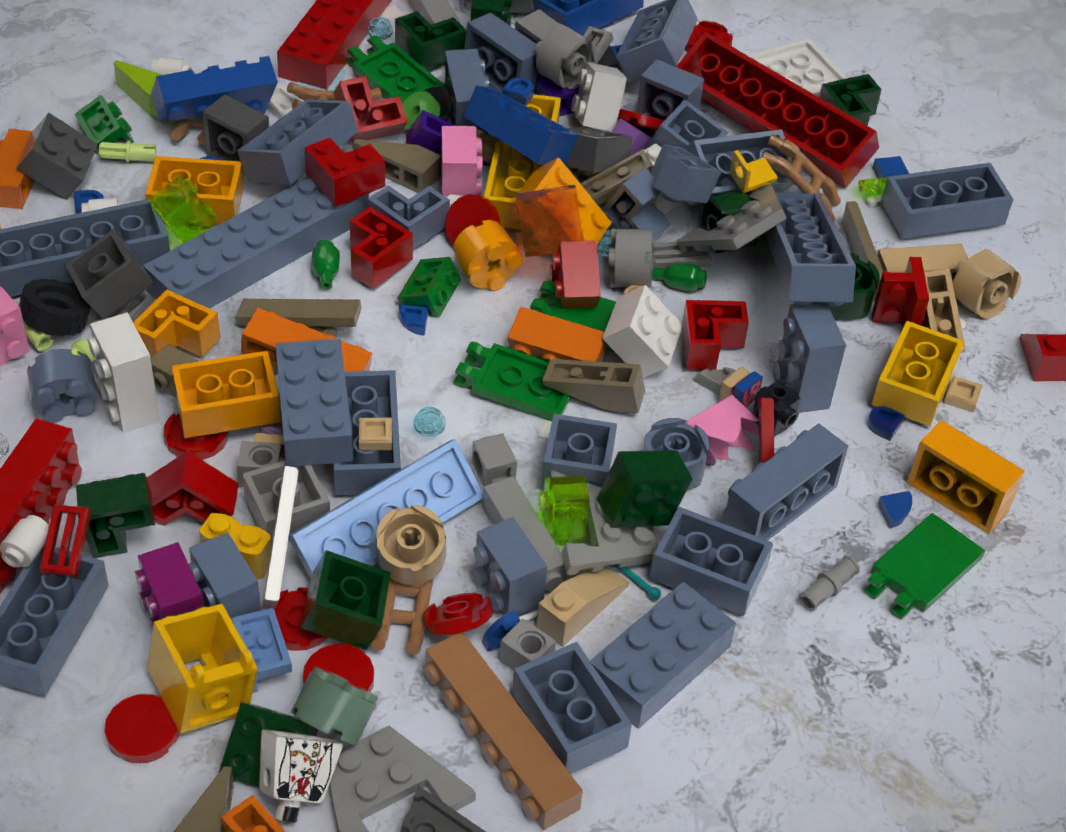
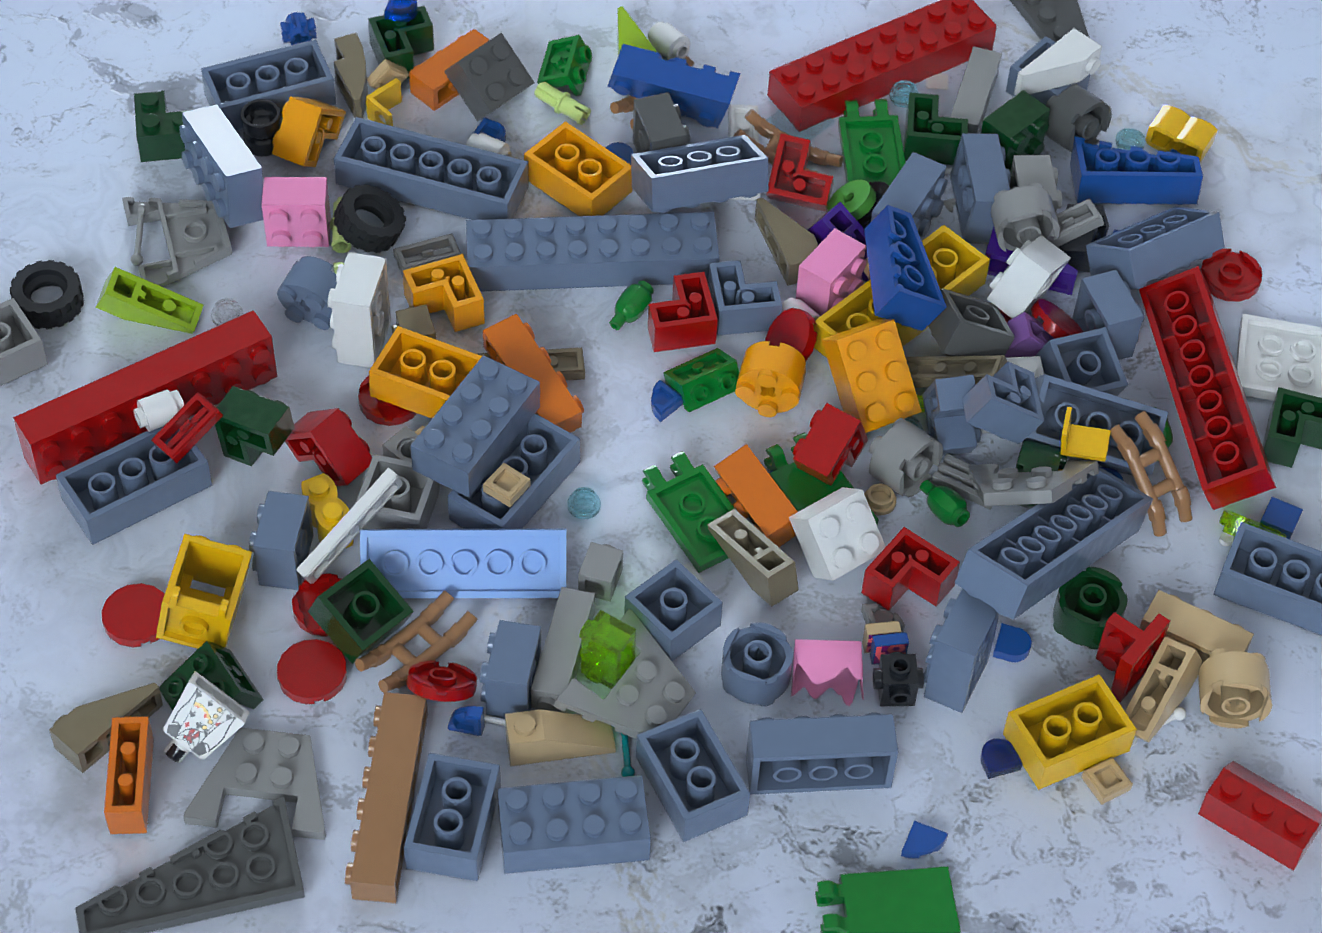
camera: 40 degrees right, 5 degrees up
(108, 274) = (429, 213): dark grey brick -> none
(167, 583) = (235, 511): magenta brick -> none
(183, 209) = (542, 186): clear neon green brick -> none
(265, 642) = (268, 607): medium blue bracket -> none
(305, 311) = (567, 338): dark tan tile -> none
(334, 705) = (270, 690): sand green brick -> none
(342, 174) = (704, 230): red brick -> none
(397, 549) = (447, 599): tan brick -> none
(519, 90) = (951, 230): blue tile -> none
(525, 639) = (470, 736): light grey brick -> none
(546, 219) = (834, 375): clear orange plate -> none
(644, 488) = (678, 672): dark green brick -> none
(765, 429) = (860, 687): red tile -> none
(829, 583) = (785, 864): light grey pin -> none
(859, 237) = (1157, 575): dark tan tile -> none
(965, 476) = (1003, 852): light orange brick -> none

